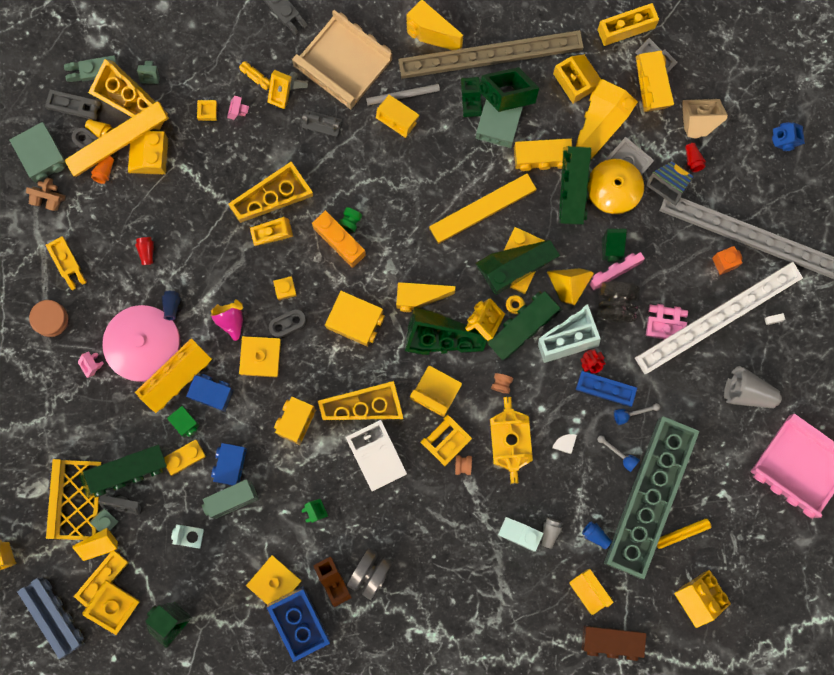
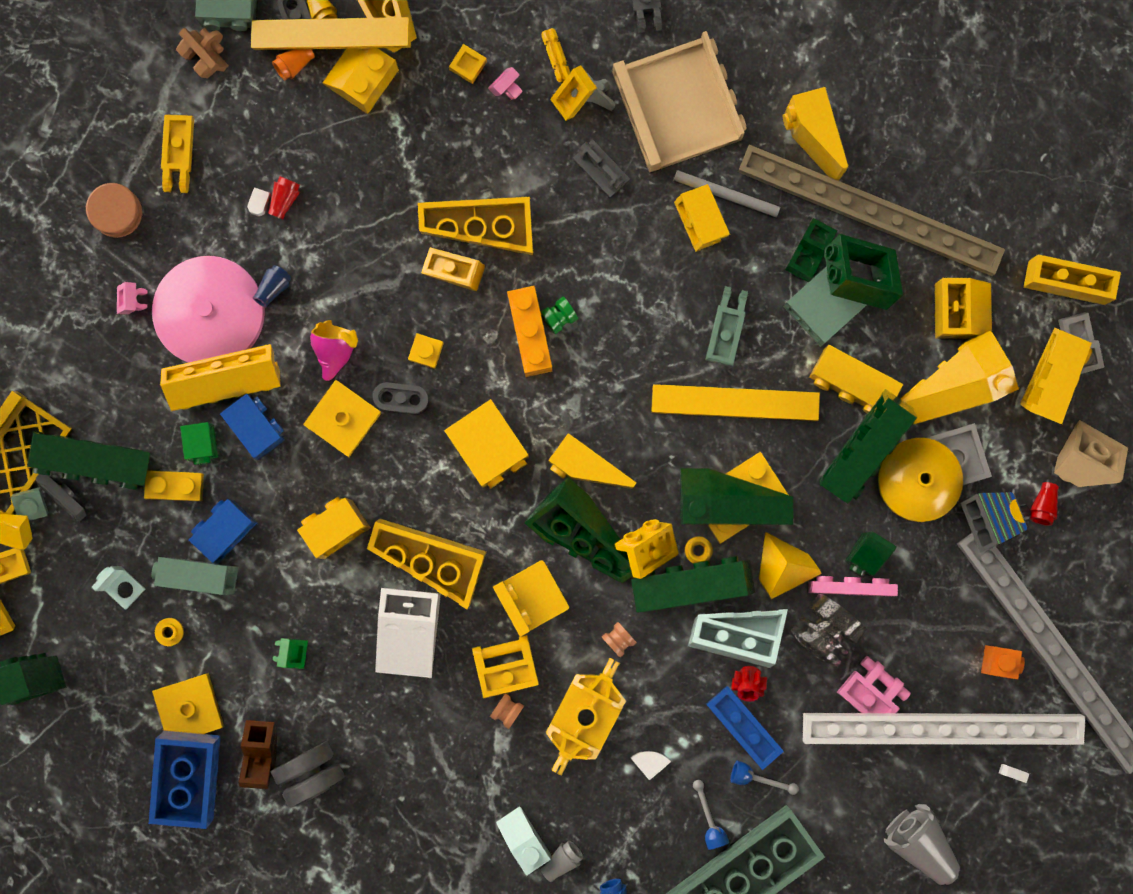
camera: 30 degrees right, 5 degrees up
(132, 262) = (258, 202): none -> white piece
(238, 549) = (177, 628): none -> yellow plate
(451, 170) = (726, 330): none -> sand green hinge

